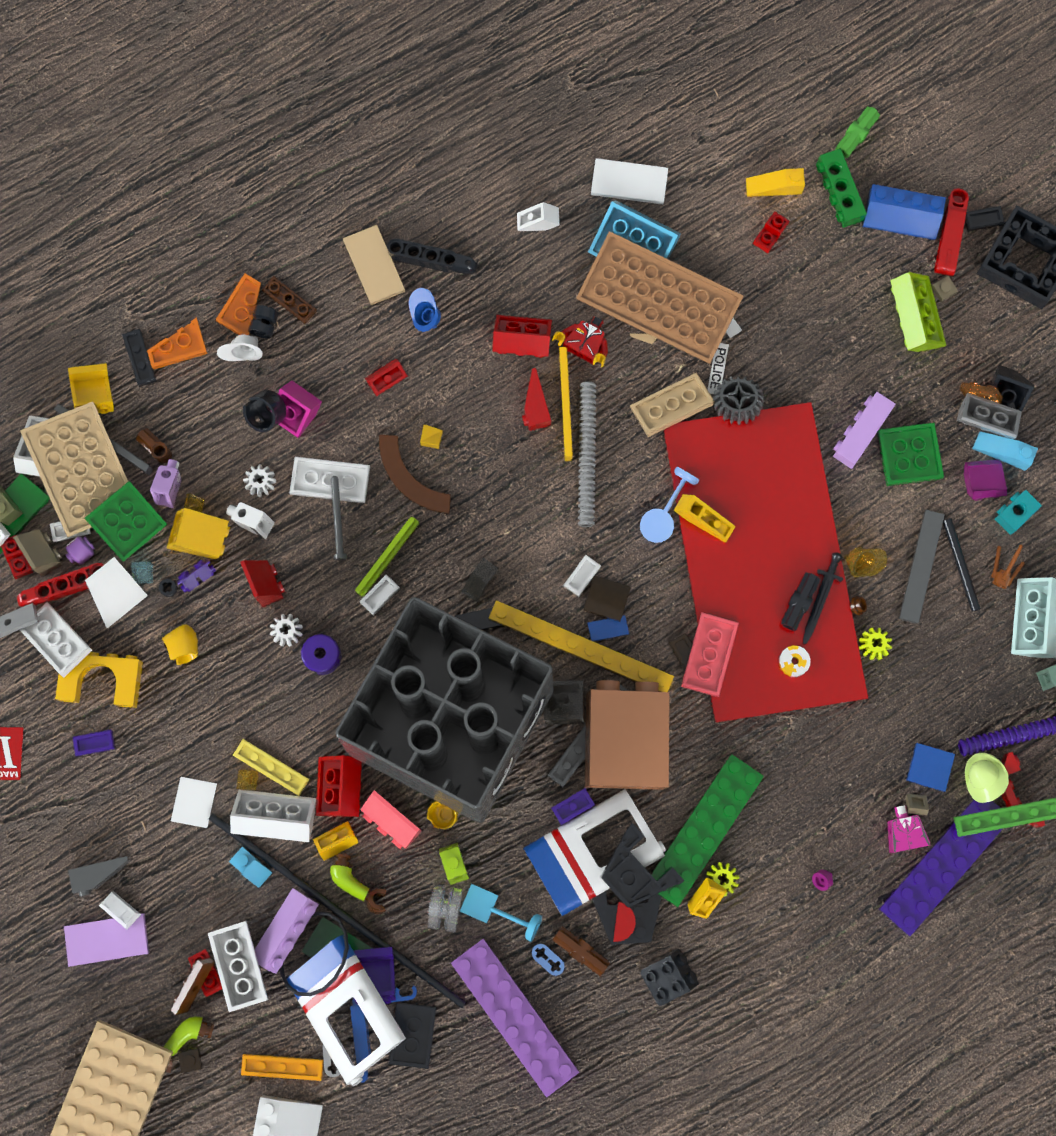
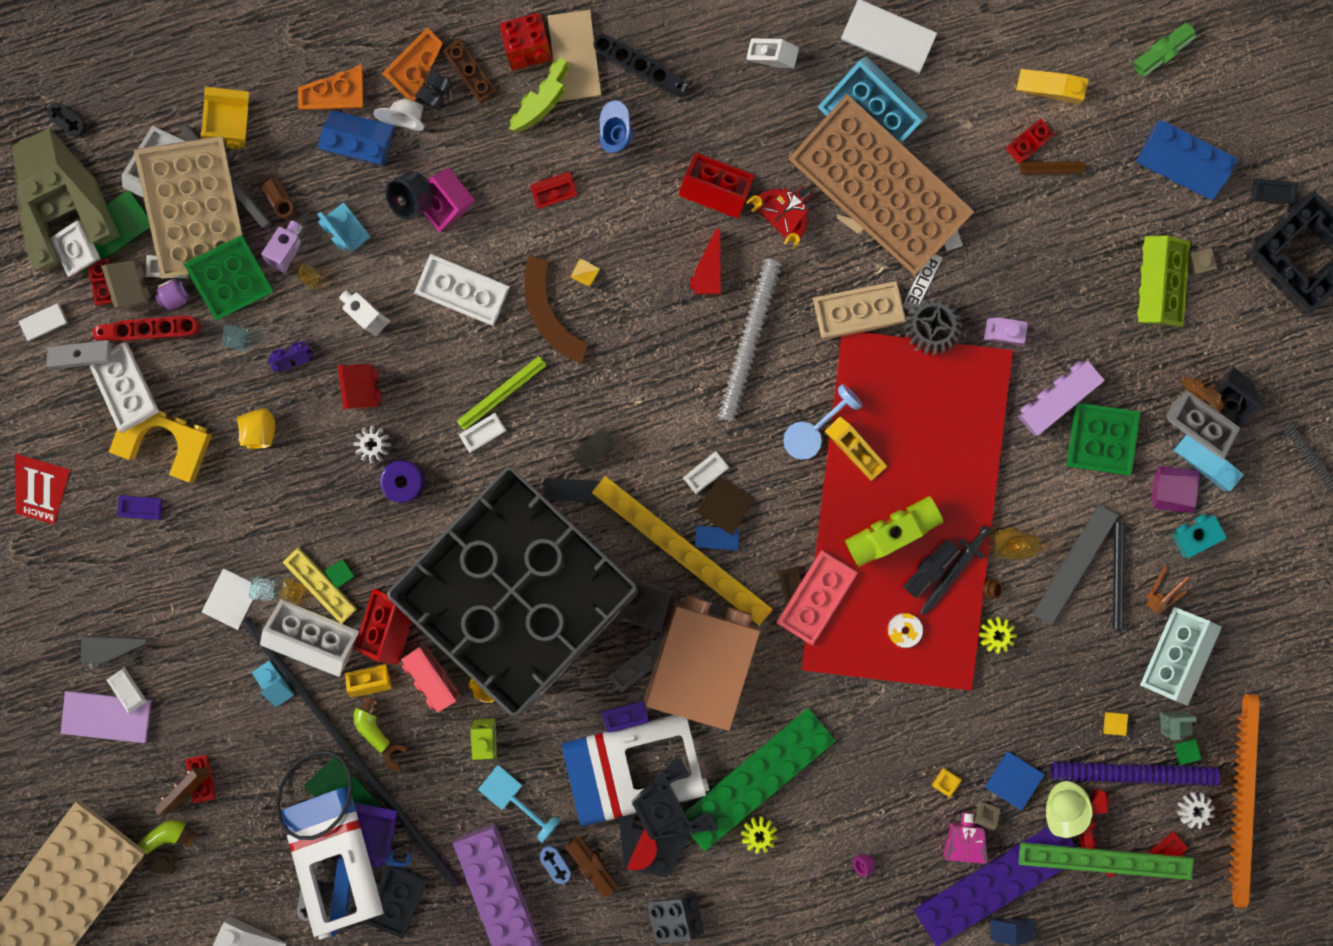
camera: 15 degrees right, 10 degrees up
(114, 591) = (198, 351): white sticker -> none
(139, 357) = (287, 92): black tile -> none
(174, 587) = (251, 360): black bush -> none
(198, 534) = (303, 313): yellow slope -> none
(207, 379) = (356, 138): none -> blue slope
(216, 454) = (345, 227): none -> medium azure bracket
(220, 784) = (262, 588): none -> clear light blue slope
(237, 966) = (232, 784): white slope -> none
(252, 483) = (378, 266): white gear -> none
(282, 1067) = (255, 894): light orange tile -> none
(284, 930) = (290, 761): lavender brick -> none
(286, 751) = (340, 573): none -> green tile
(330, 264) = (525, 41): none -> red bracket
(337, 520) = (458, 337): dark grey bar -> none
(354, 310) = (535, 106): none -> lime slope
(444, 908) = (462, 786): clear wheel -> none
(567, 436) = (743, 272): yellow tile -> none
(706, 898) = (736, 851): yellow slope -> none
(768, 566) = (911, 525): none -> lime brick
(796, 248) = (1063, 167): none -> reddish brown axle
(803, 387) = (1006, 331): none -> lavender torso
(835, 161) = (1129, 79): green brick -> none
(872, 786) = (946, 782): none -> yellow tile
(951, 233) = (1232, 199): red piece -> none
(971, 902) = (1012, 930): none -> dark blue slope
(1001, 692) = (1115, 723): none -> yellow tile

